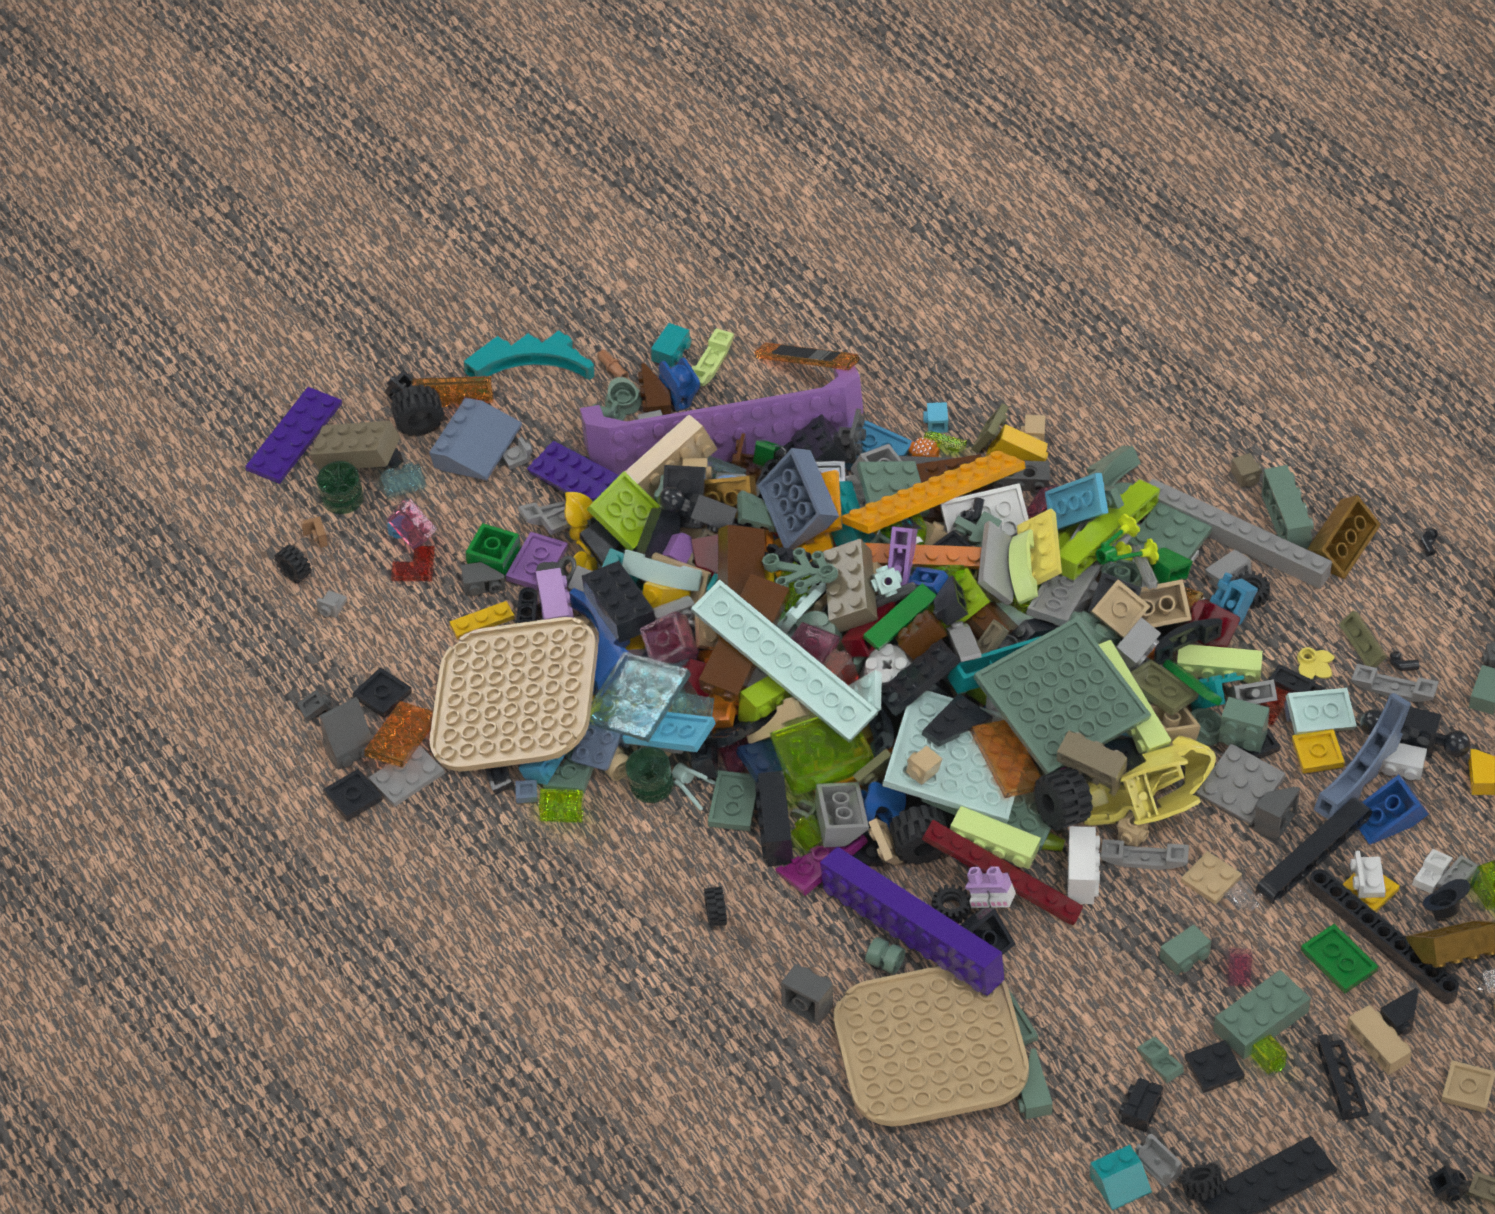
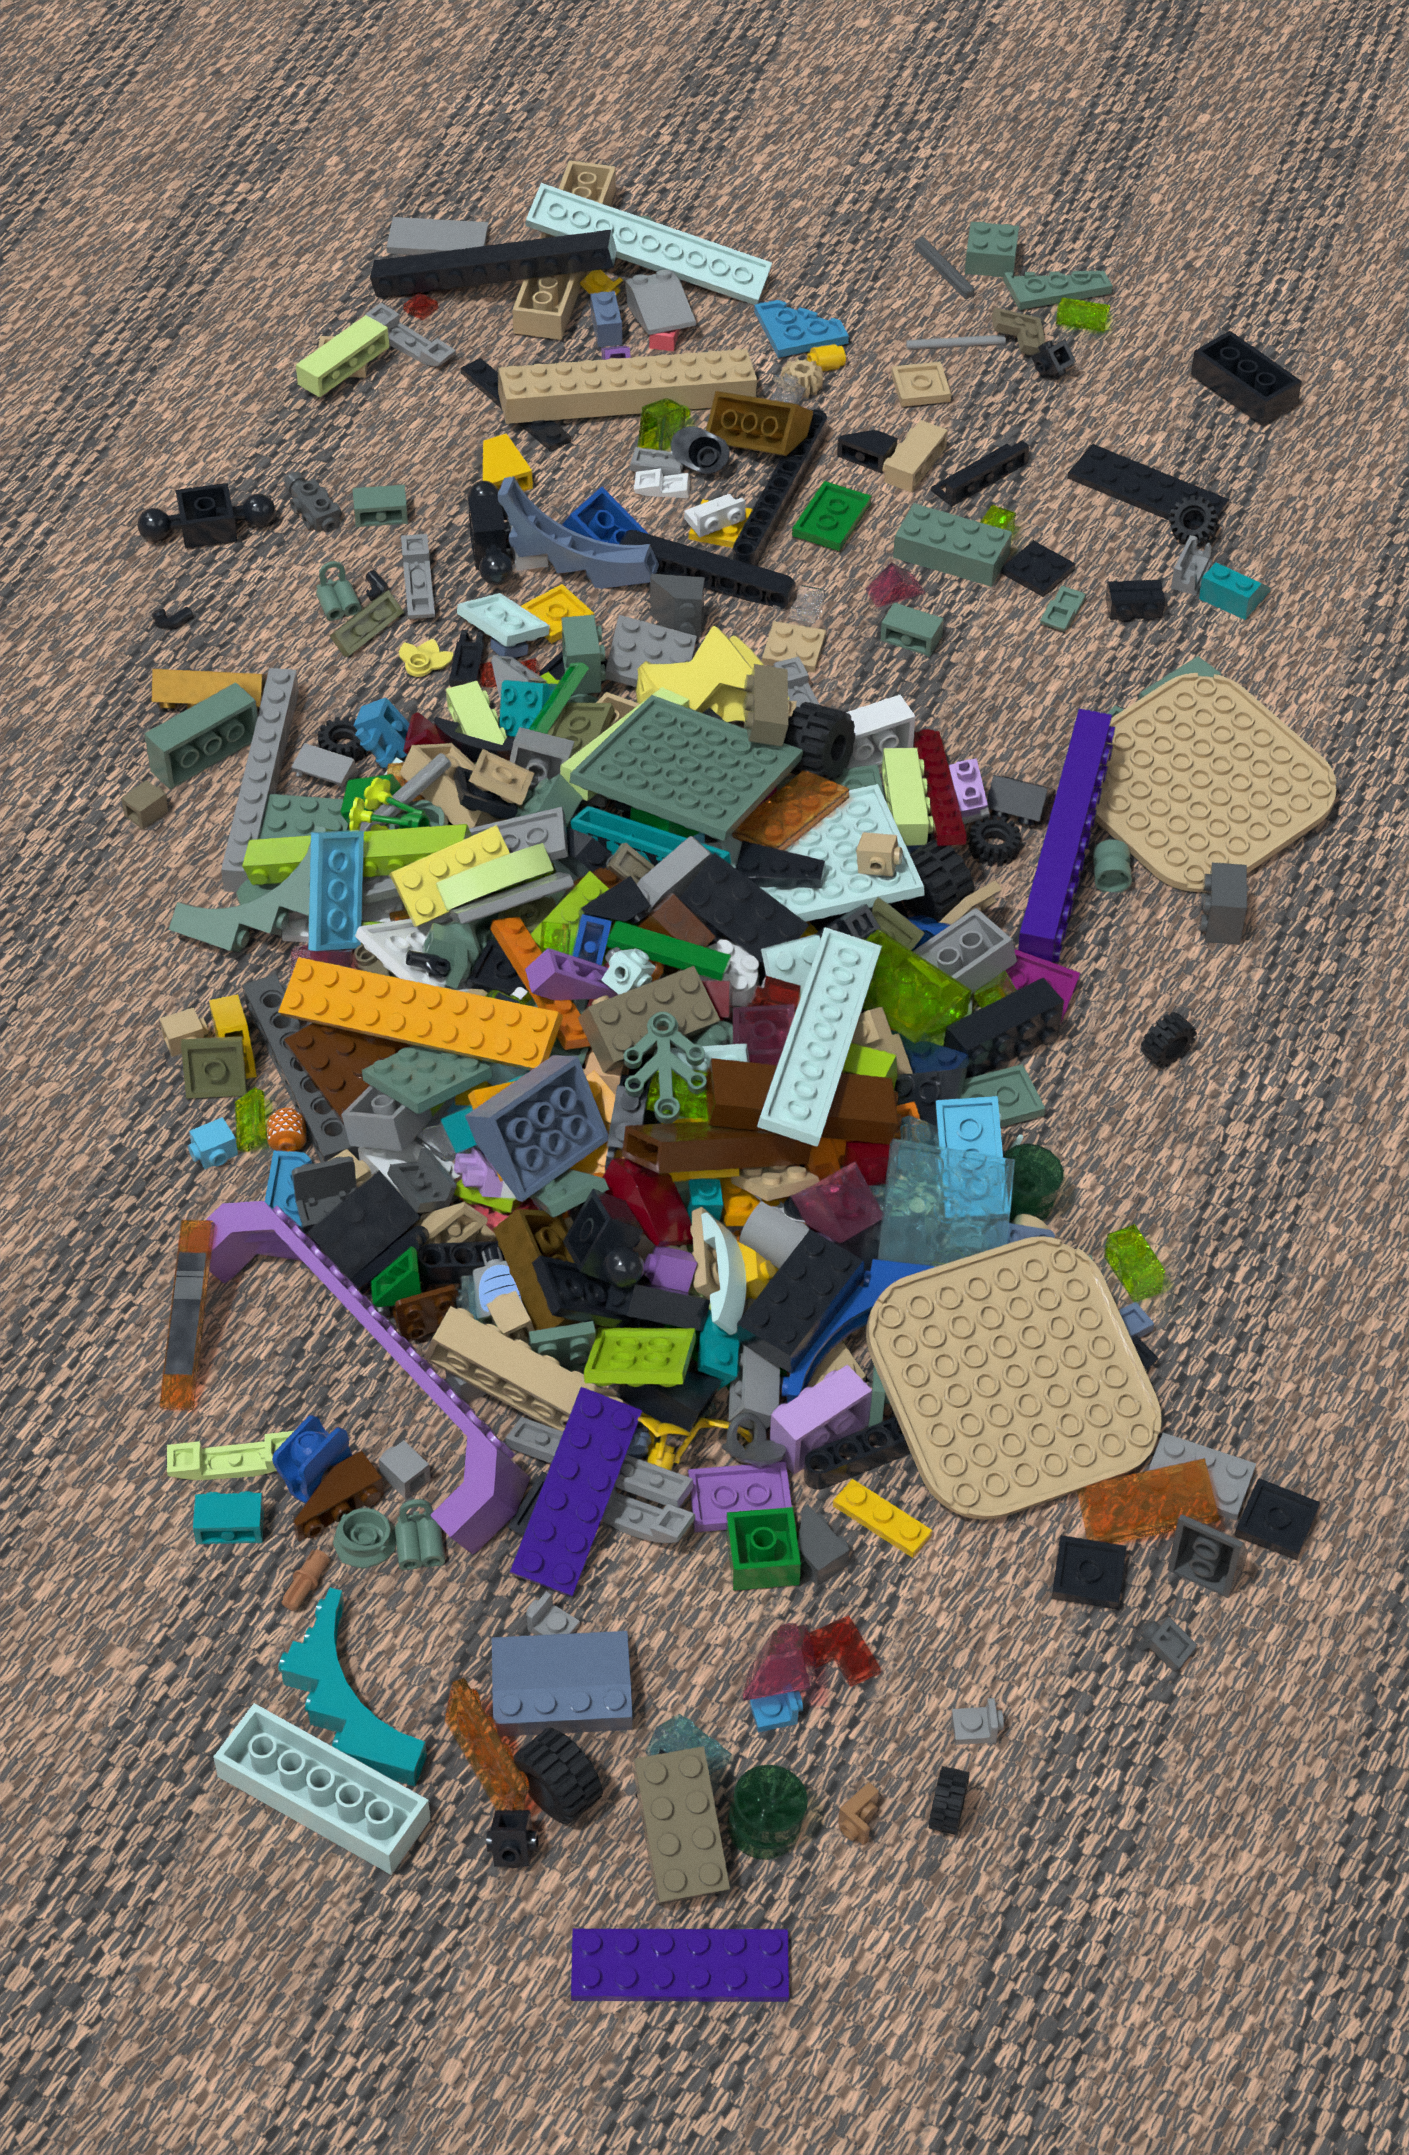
camera: 120 degrees left, 0 degrees up
(471, 329) = (322, 1788): none -> light aqua brick
(1402, 635) = (336, 596): none -> sand green piece

